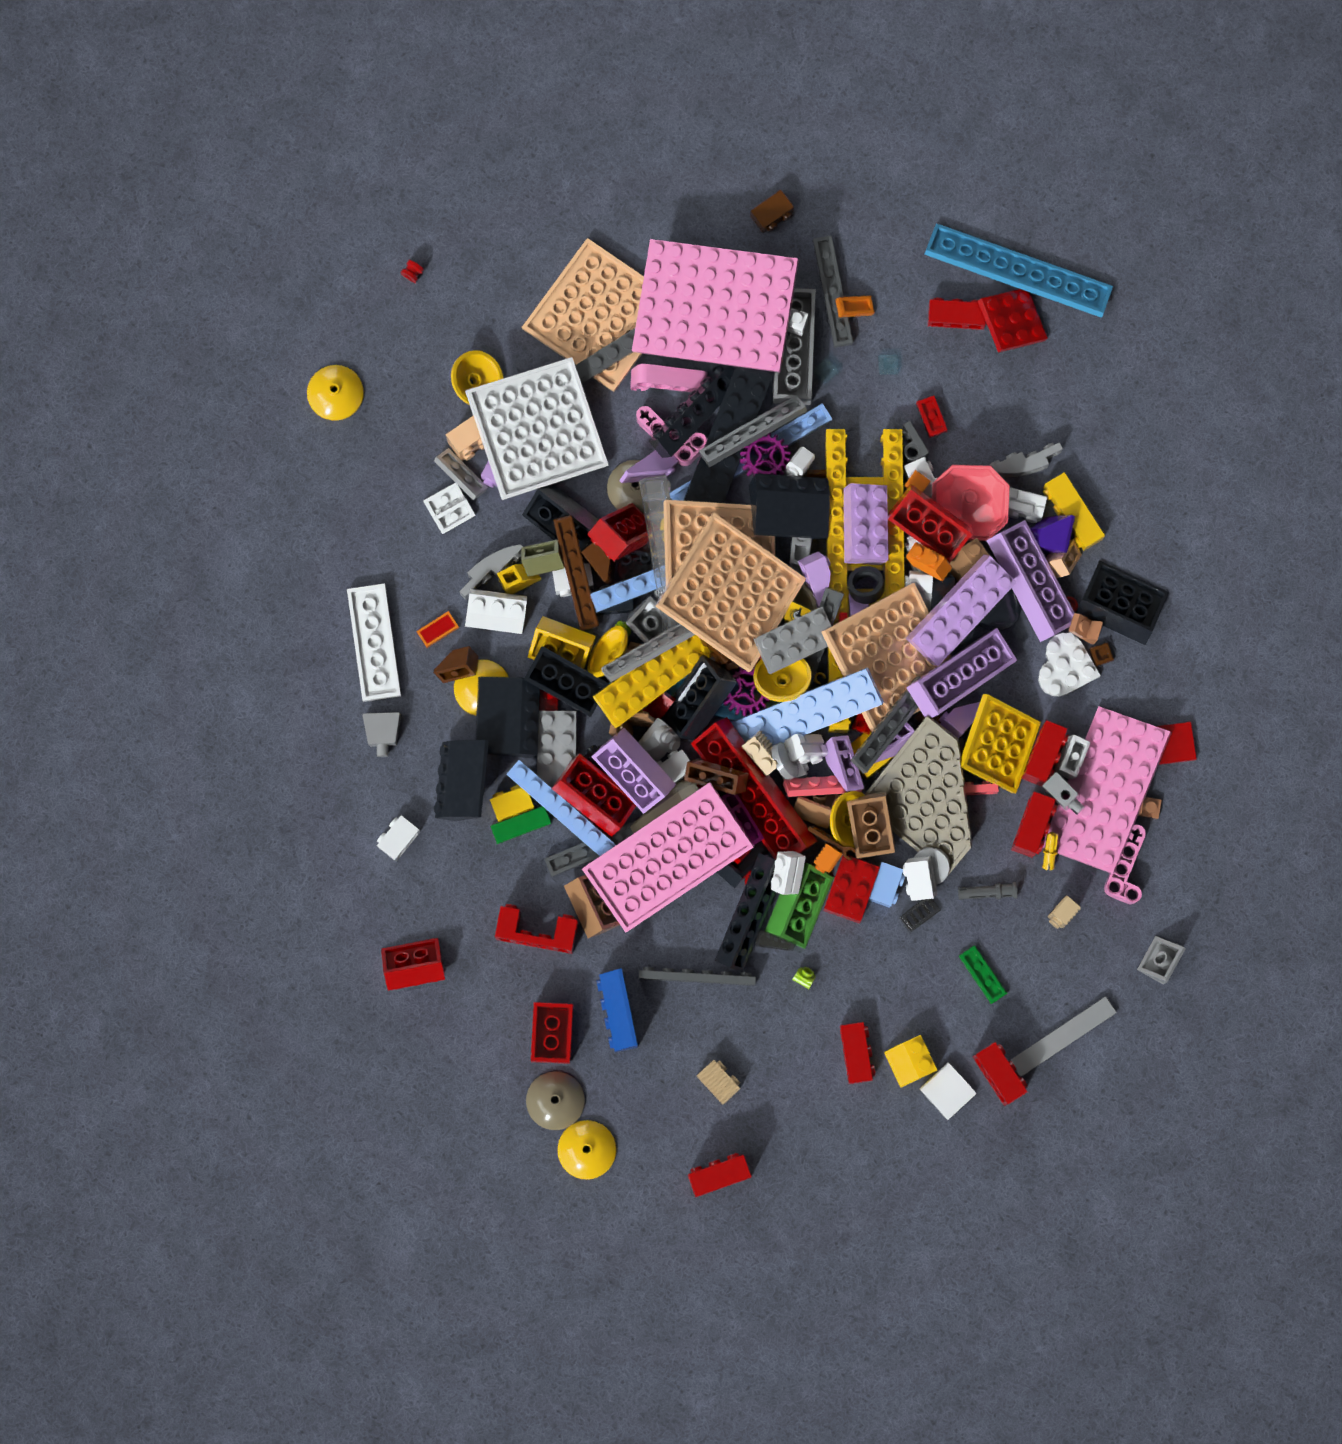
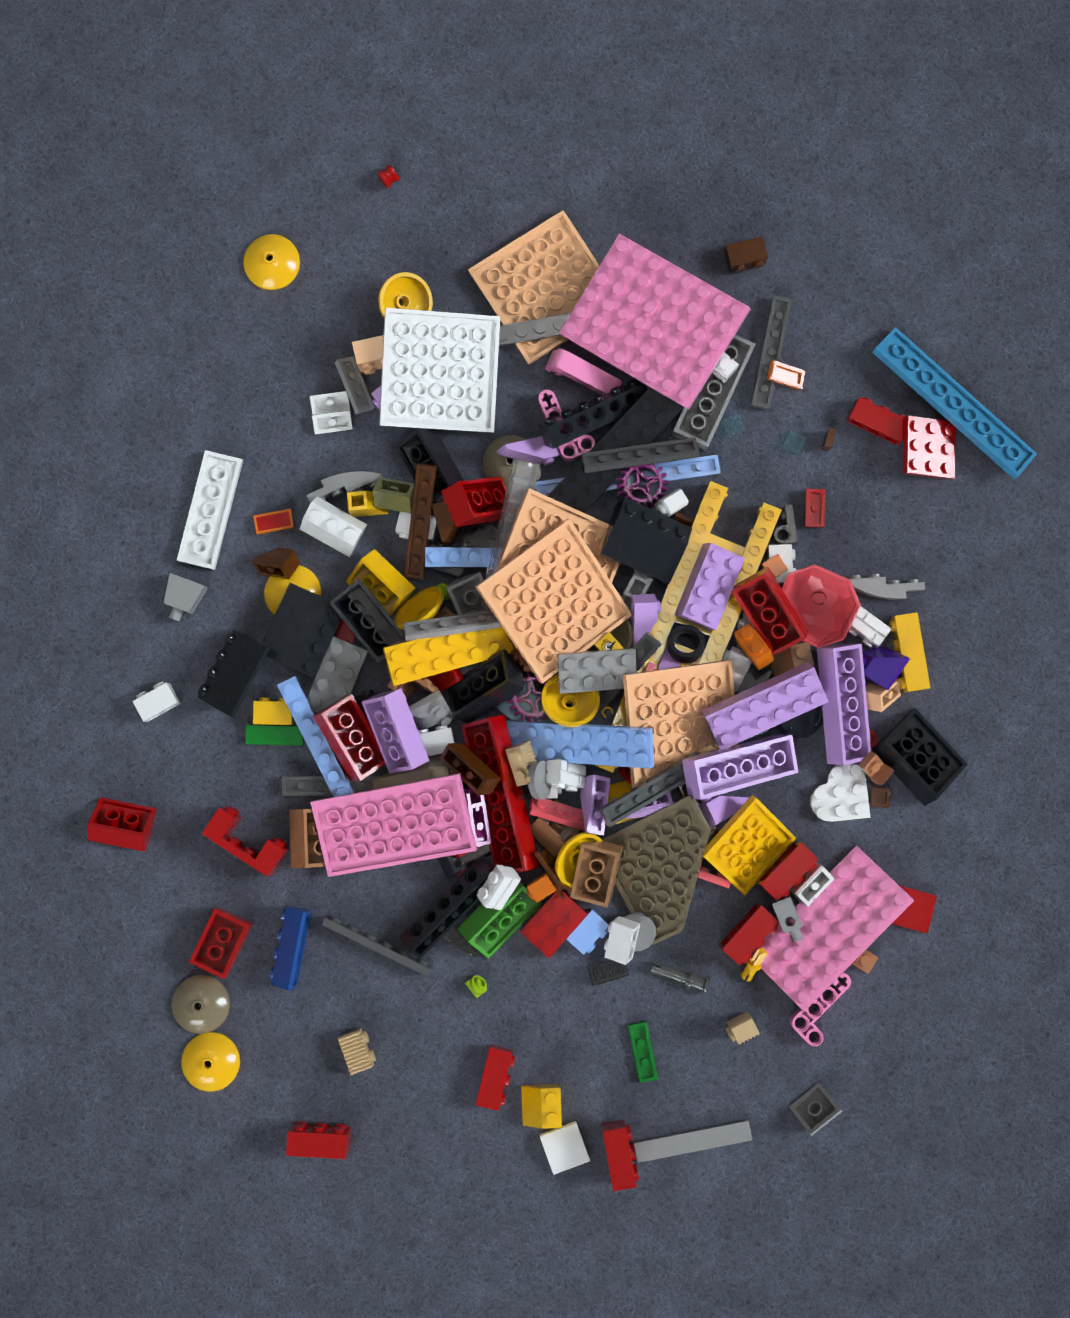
camera: 25 degrees right, 5 degrees up
(918, 349) = (829, 438): none -> reddish brown tile

